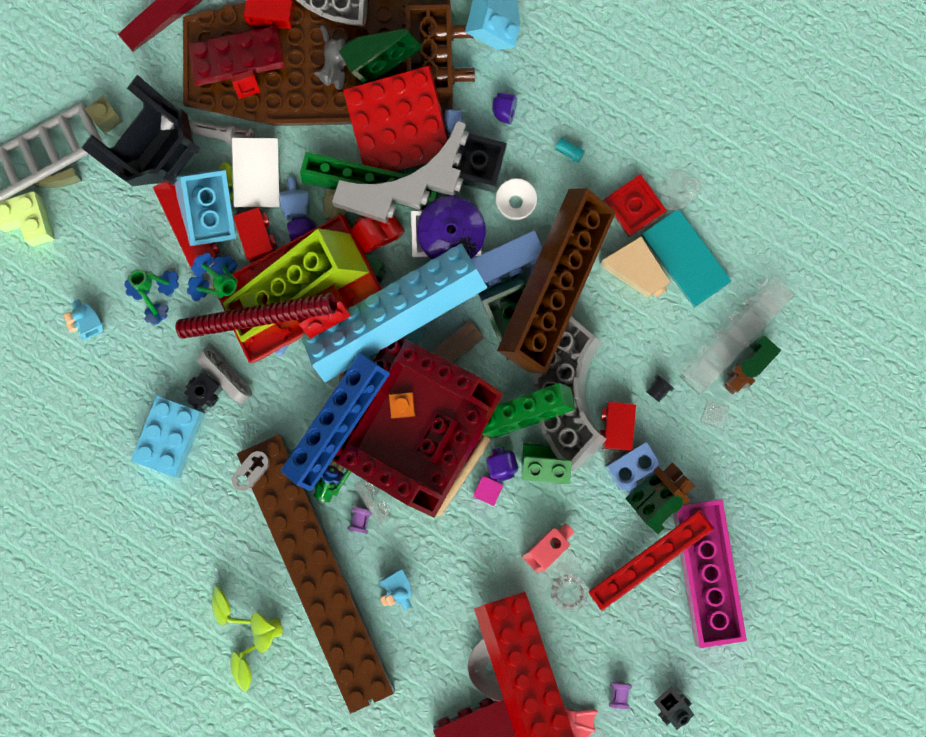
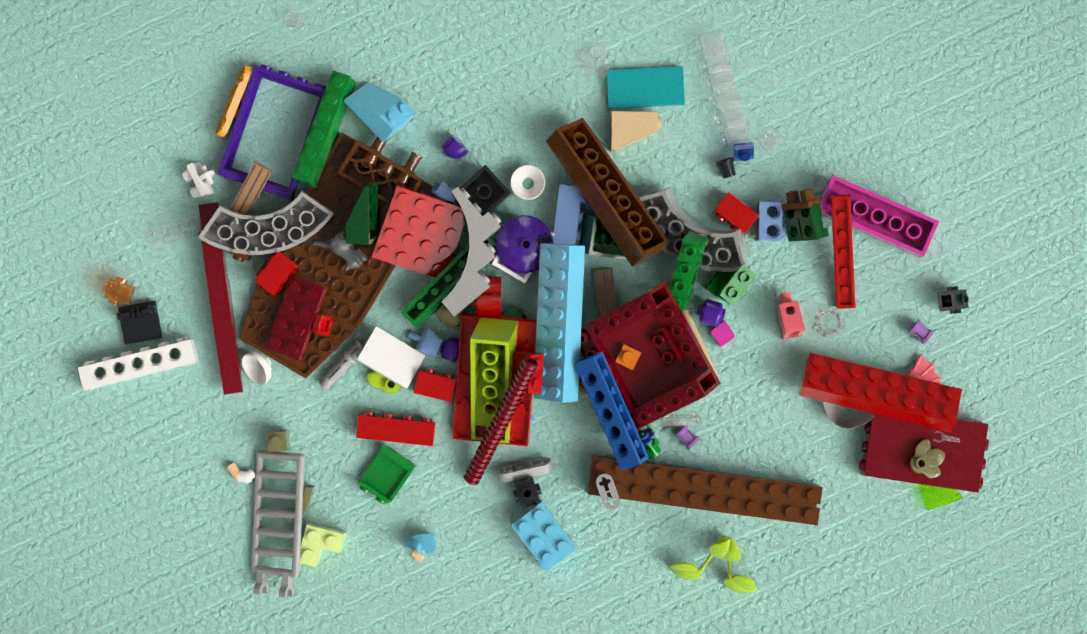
camera: 55 degrees left, 5 degrees up
(47, 100) = (241, 476): none -> arm
(135, 242) = (386, 475): none -> green panel
(139, 285) = (423, 489): plant -> none
(153, 145) = (328, 419): black piece -> none
(165, 50) = (257, 367): none -> white piece
(205, 206) = (395, 408): medium azure slope -> none
(221, 271) = (461, 429): plant -> none
(397, 589) = (751, 440): medium azure piece -> none
(570, 150) = (515, 120): teal pin -> none
(635, 205) = (585, 100): red plate -> none
(686, 395) = (743, 151): none -> clear blue plate
(743, 373) = (753, 93): dark green hips -> none

